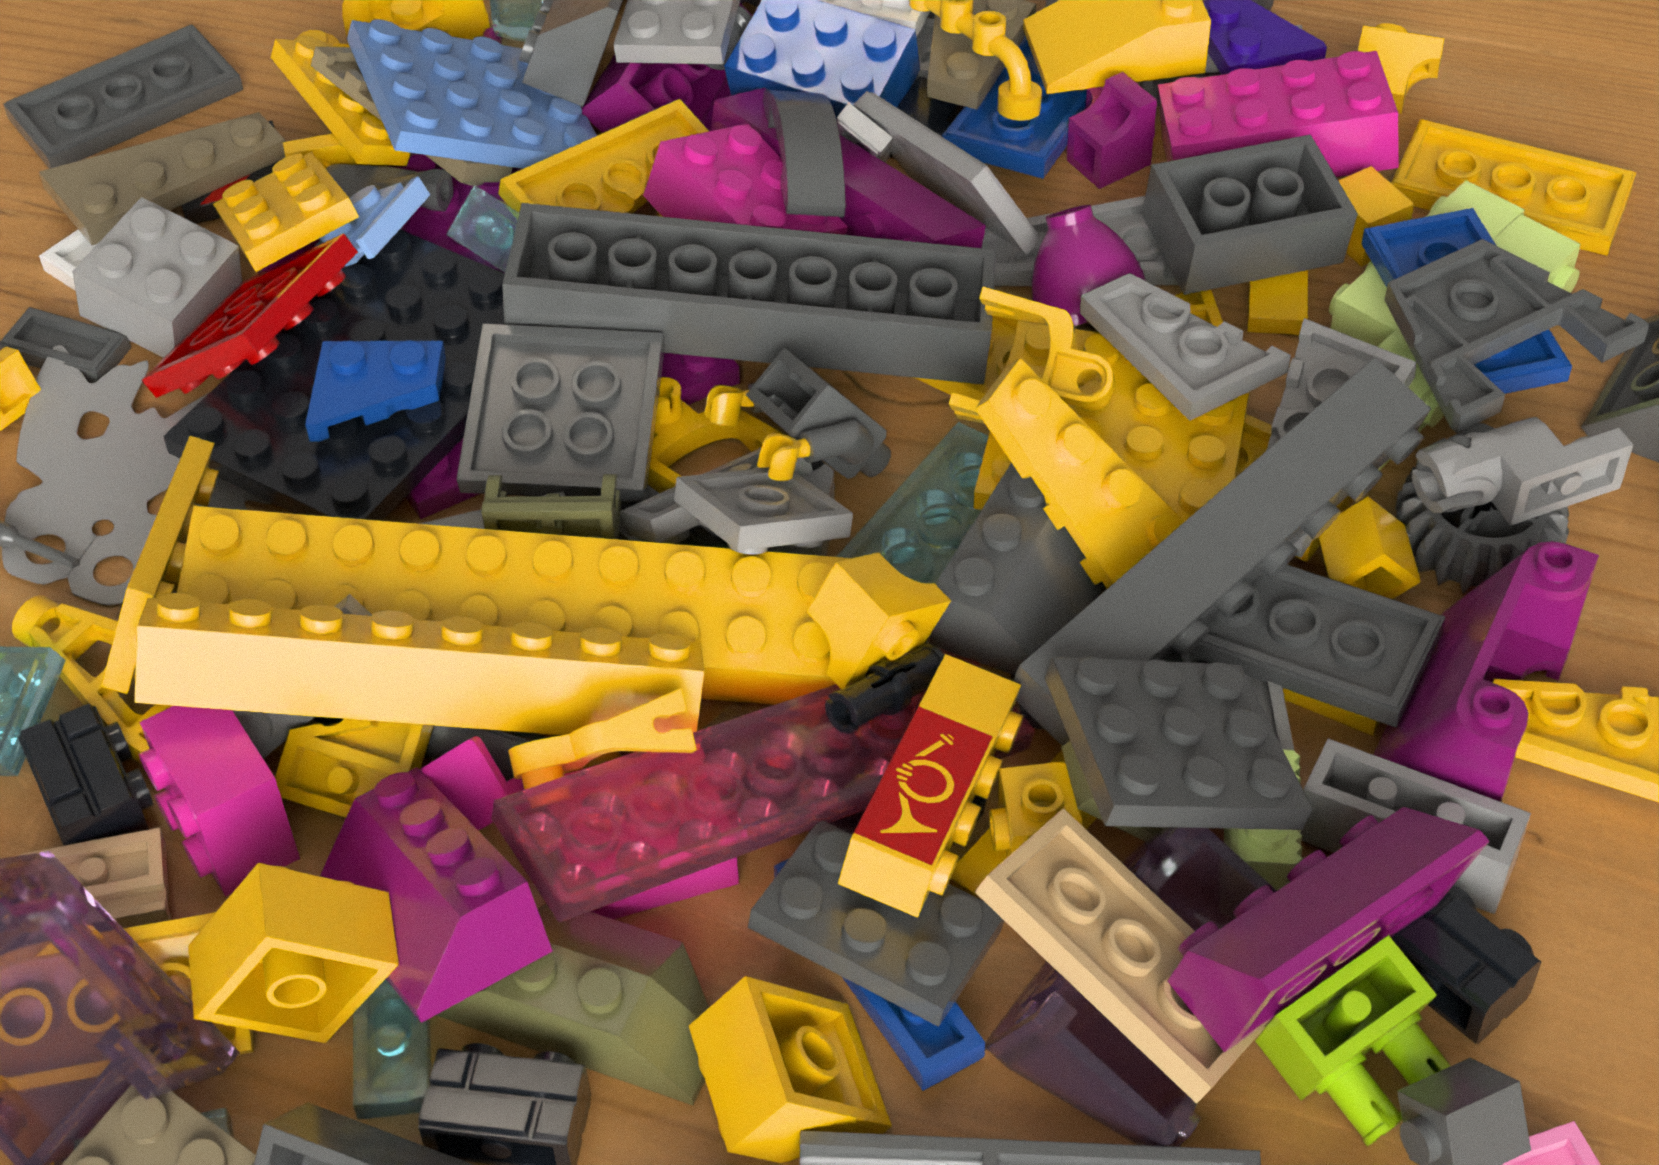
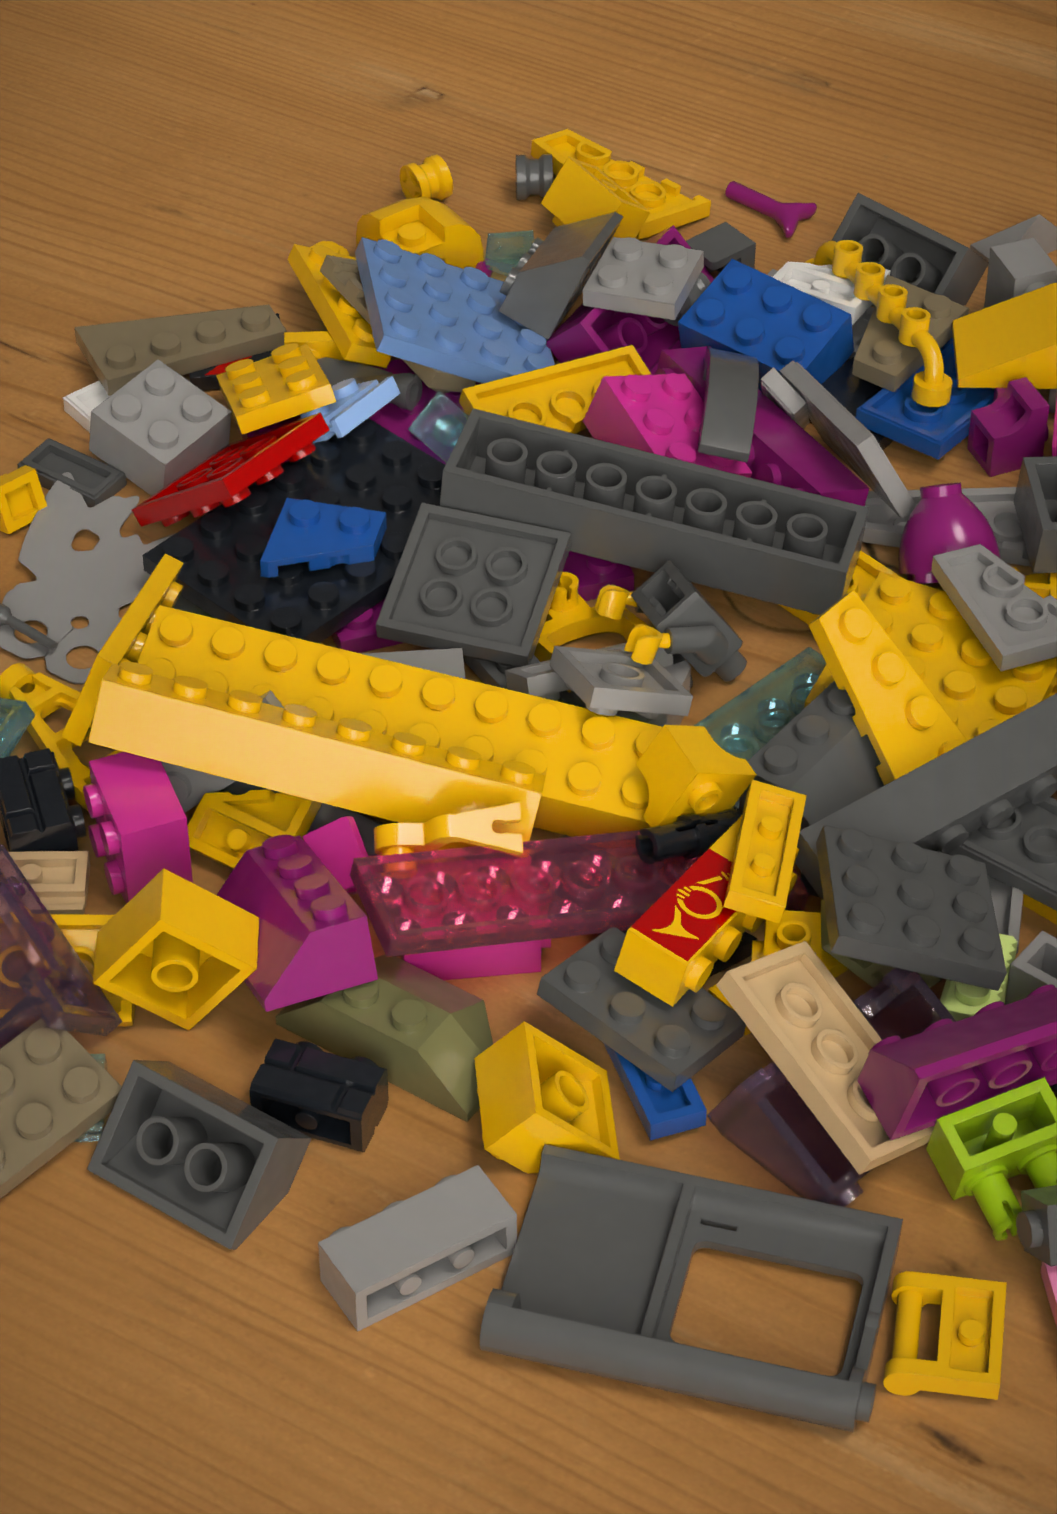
camera: 10 degrees right, 5 degrees down
(122, 97) = (155, 275): dark grey tile -> none
(389, 1056) = (237, 1040): clear light blue plate -> none
(554, 513) = (449, 659): olive hinge -> none
(988, 702) = (765, 851): none -> yellow plate
(1065, 366) = (901, 610): yellow piece -> none

